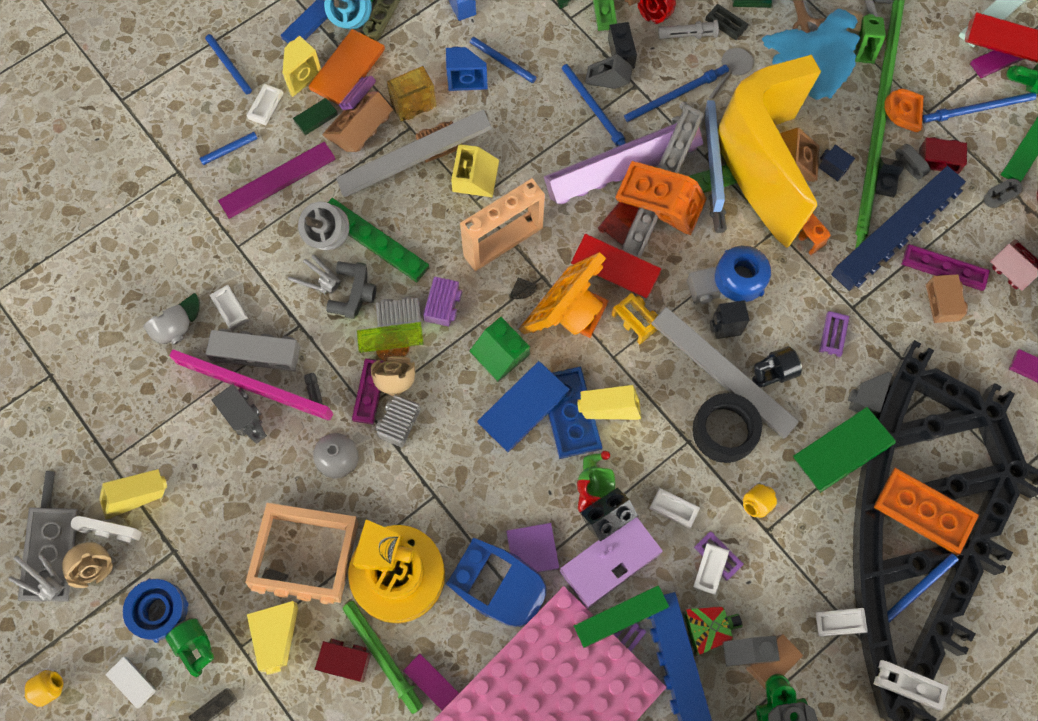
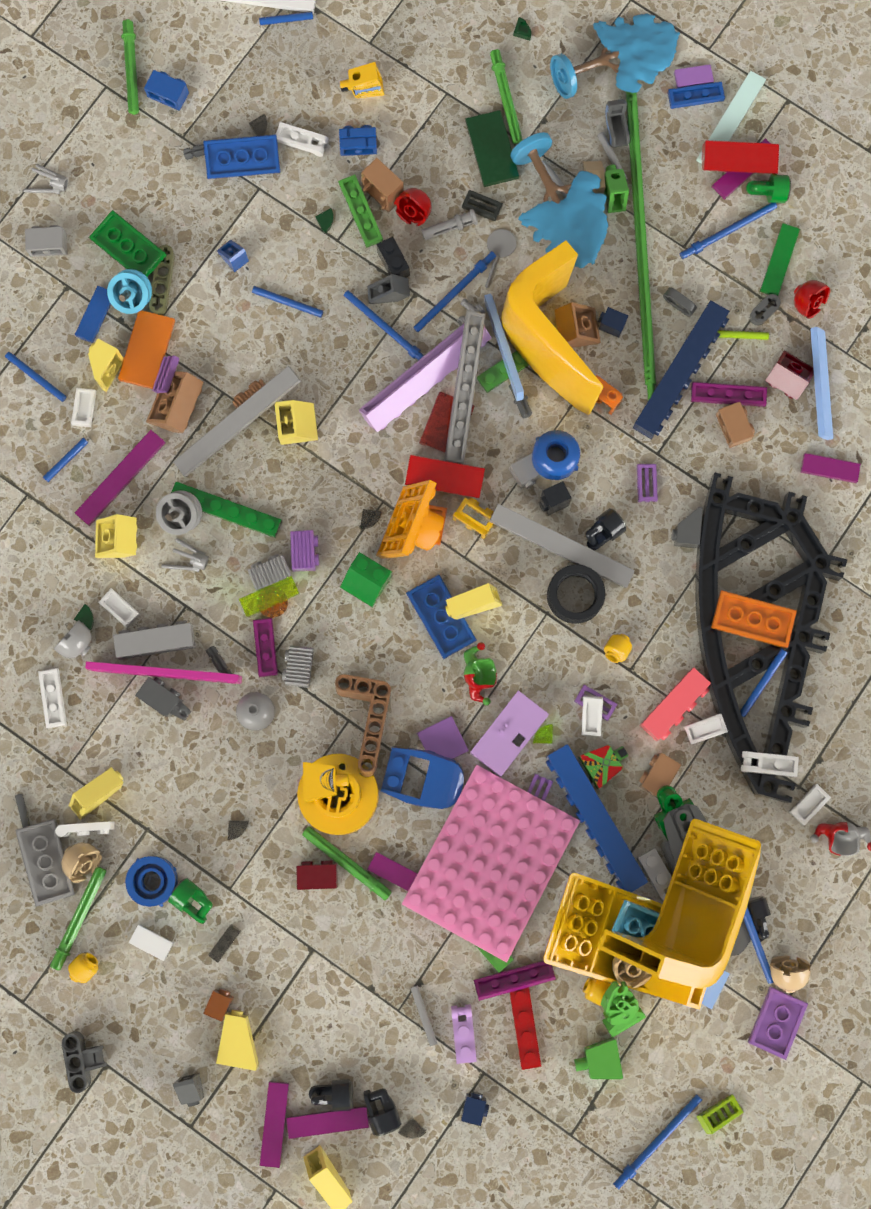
camera: 15 degrees left, 10 degrees up
(48, 587) = (57, 889): light grey plant -> none
(59, 630) = (78, 918): none -> bright green axle
(125, 380) = (52, 698): none -> white tile
(251, 234) = (116, 537): none -> light yellow slope
(272, 635) = (253, 873): light yellow slope -> none
(309, 517) = (252, 769): light nougat window -> none
(315, 116) = (134, 406): dark green tile -> none
(360, 290) = (229, 562): dark grey connector -> none
(393, 375) = (283, 628): tan cylinder -> none
(412, 93) = (216, 363): clear yellow brick -> none
(462, 500) = (373, 718): none -> medium nougat beam
(465, 70) = (257, 325): blue slope -> none
(497, 213) = (337, 469): light nougat window -> none
(523, 406) = (400, 624): blue tile -> none
(609, 514) = (497, 696): black brick -> none
(621, 616) = (529, 776): green tile -> none
(650, 575) = (544, 735): none -> clear neon green tile
(668, 194) = (468, 400): orange bracket -> none
(674, 508) = (549, 673): white tile -> none
(751, 651) = (639, 774): dark grey slope -> none
(811, 583) = (674, 705): none -> coral brick
(844, 449) = (676, 585): green tile -> none
(888, 176) = (661, 321): black slope -> none
(905, 109) = (662, 251): orange tile -> none
(941, 152) = (705, 287): dark red brick -> none
(974, 212) = (743, 334): none -> lime bar

